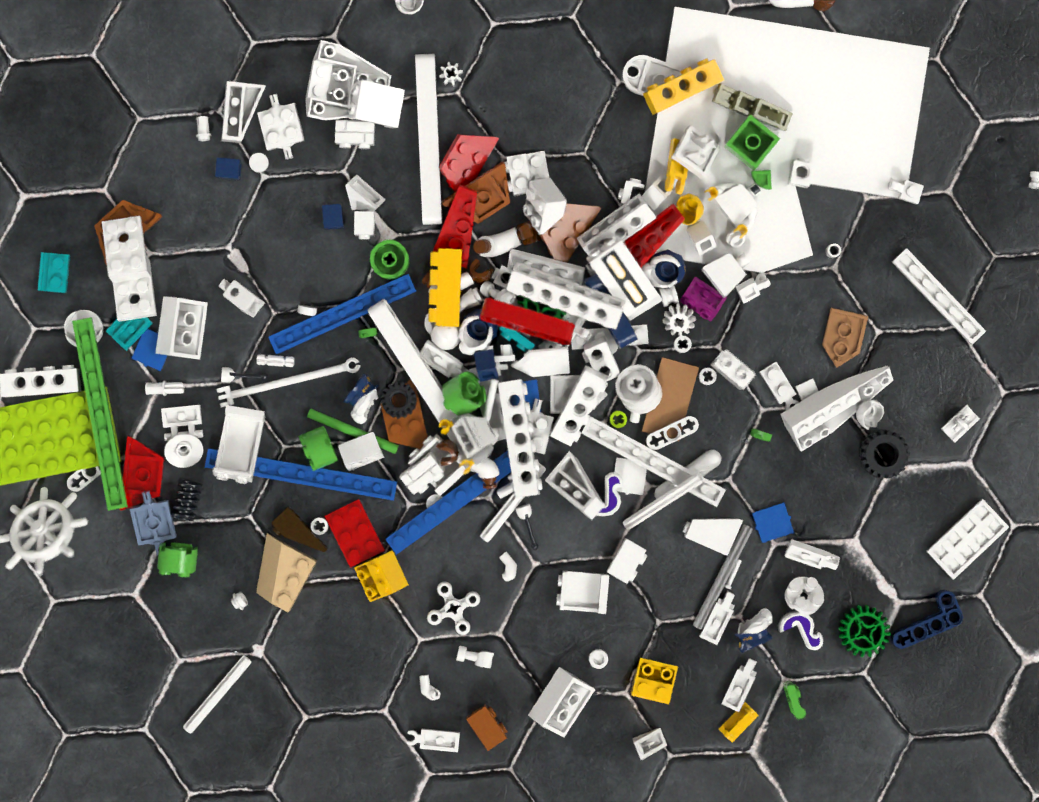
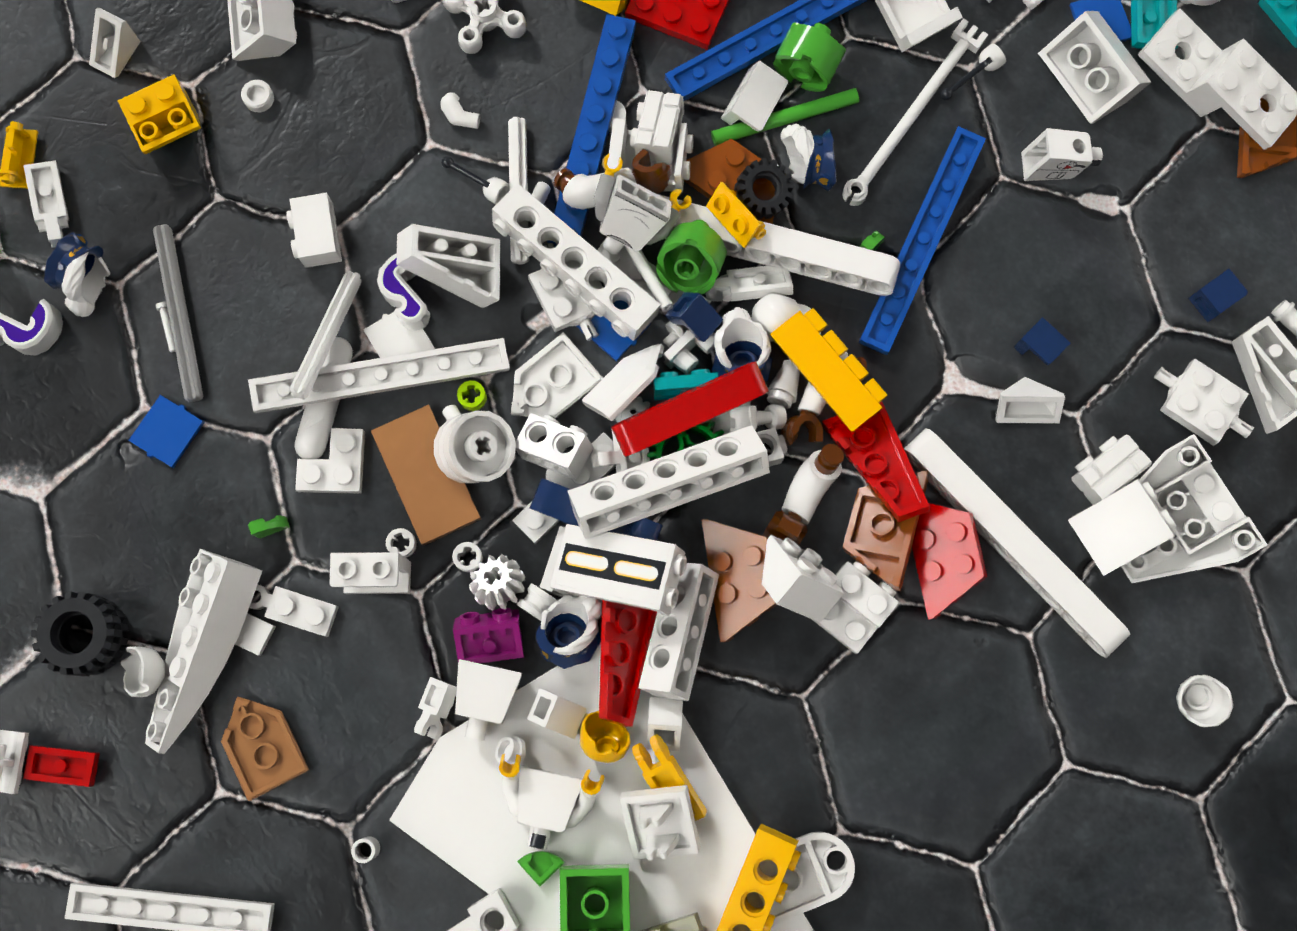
camera: 140 degrees right, 10 degrees down
(258, 162) = (1188, 336): white tile -> none
(273, 360) = (950, 122): white axle -> none
(307, 310) = (969, 208): white tile -> none
(364, 224) = (995, 367): white brick -> none
(382, 251) = (927, 331): bright green brick -> none
(426, 401) = (735, 215): none -> yellow hinge
(452, 79) = (1055, 657): white gear -> none
(558, 268) = (722, 505): white plate -> none
(583, 591) = (342, 155): white panel -> none
(588, 378) = (549, 404): white brick -> none
(624, 194) = (705, 687): white bracket -> none
(657, 433) = (381, 419): white beam -> none
(709, 434) = (341, 471): none -> white plate
(713, 533) = (231, 354): white slope -> none
(718, 619) = (141, 257): white hinge -> none
(811, 555) = (79, 428): white hinge -> none
(811, 588) = (38, 386): white plate -> none
(937, 401) = (61, 766): none -> red plate

